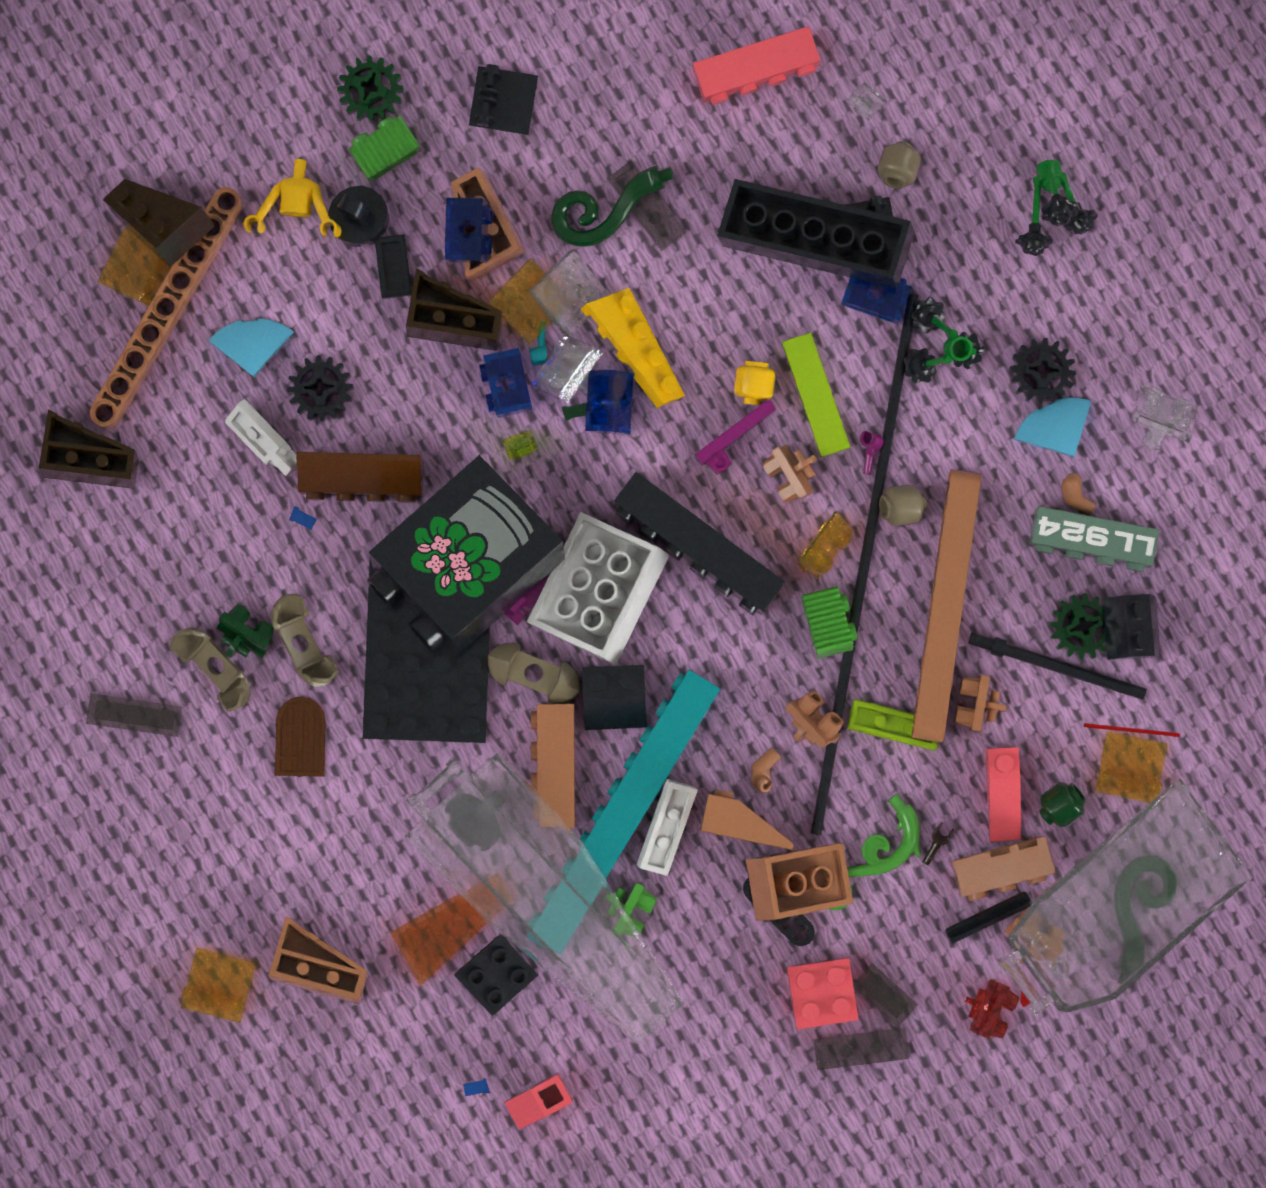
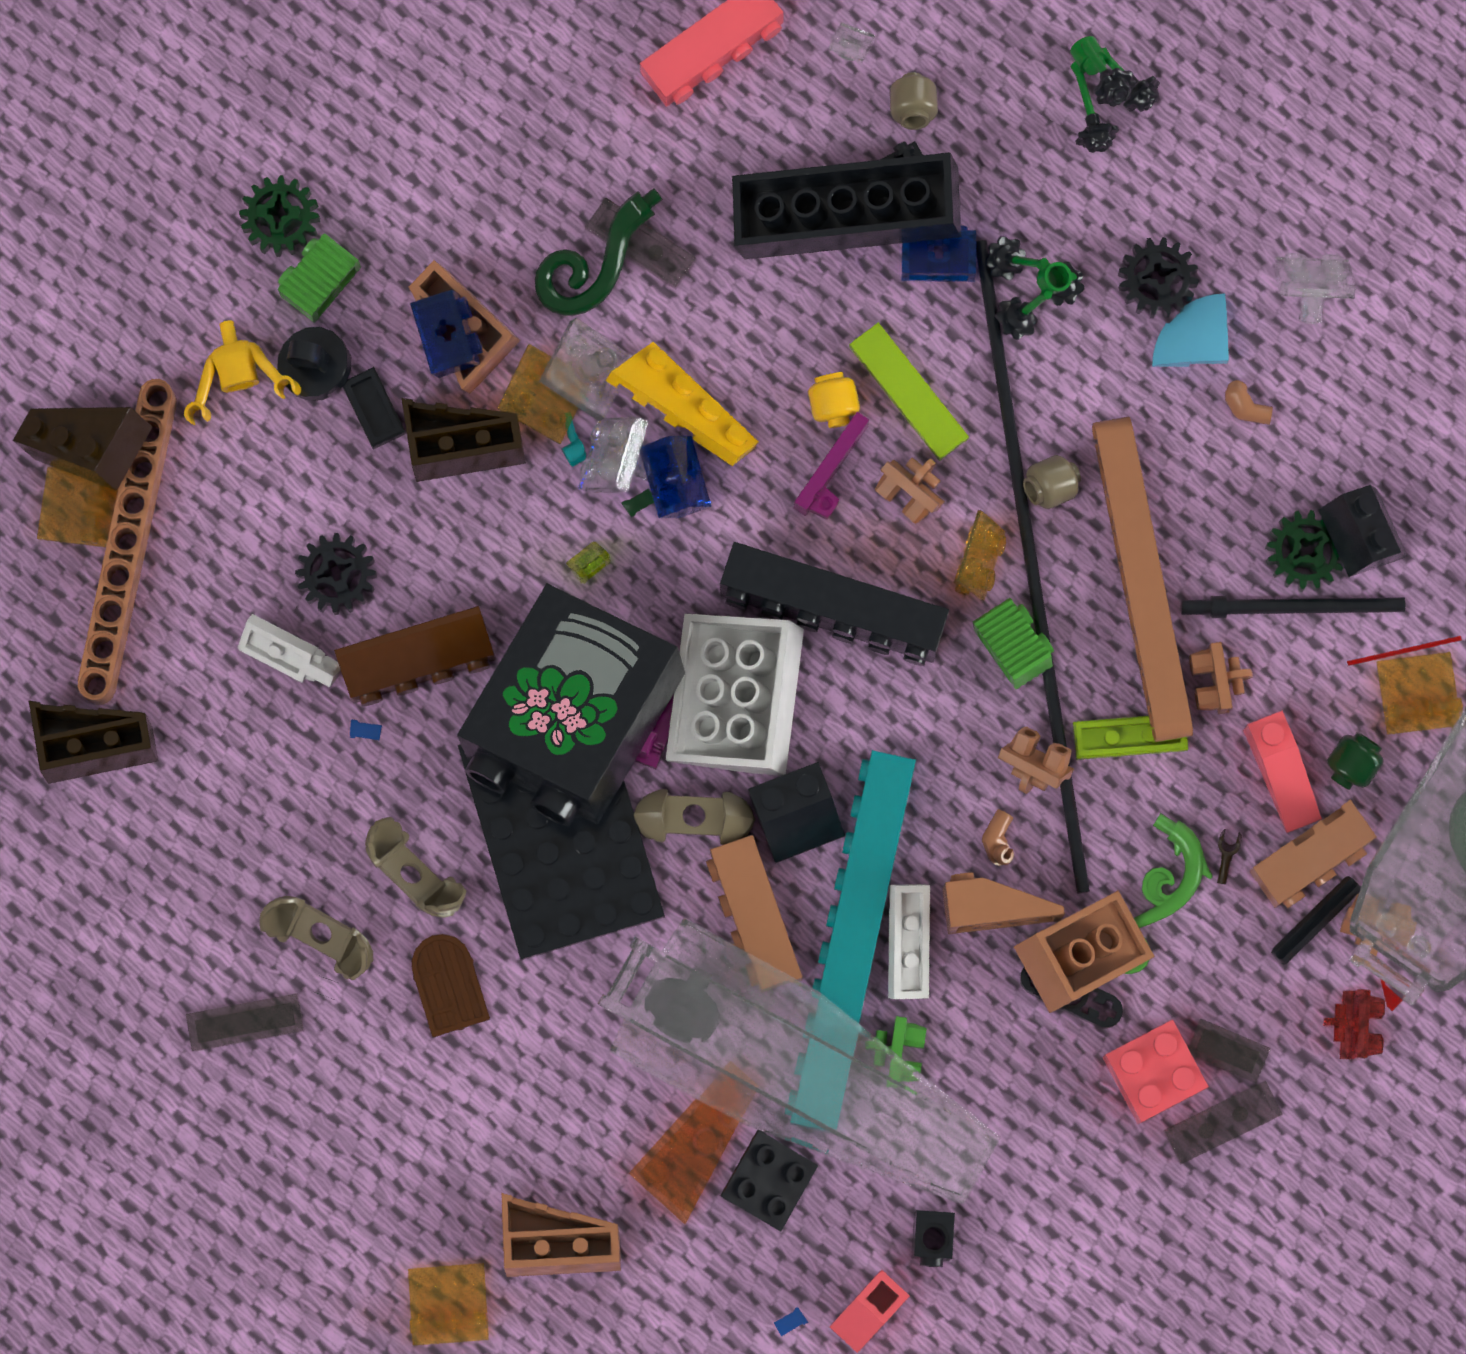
camera: 15 degrees left, 5 degrees down
(241, 637) = (341, 889): dark green hips -> none
(251, 342) = (238, 548): medium azure brick -> none
(503, 100) = (436, 178): black hinge -> none
(517, 398) = (547, 474): clear blue brick -> none
(606, 1047) = (935, 1220): none -> black brick
(875, 445) = (993, 429): magenta hand -> none
(1093, 537) = (1283, 445): sand green brick -> none

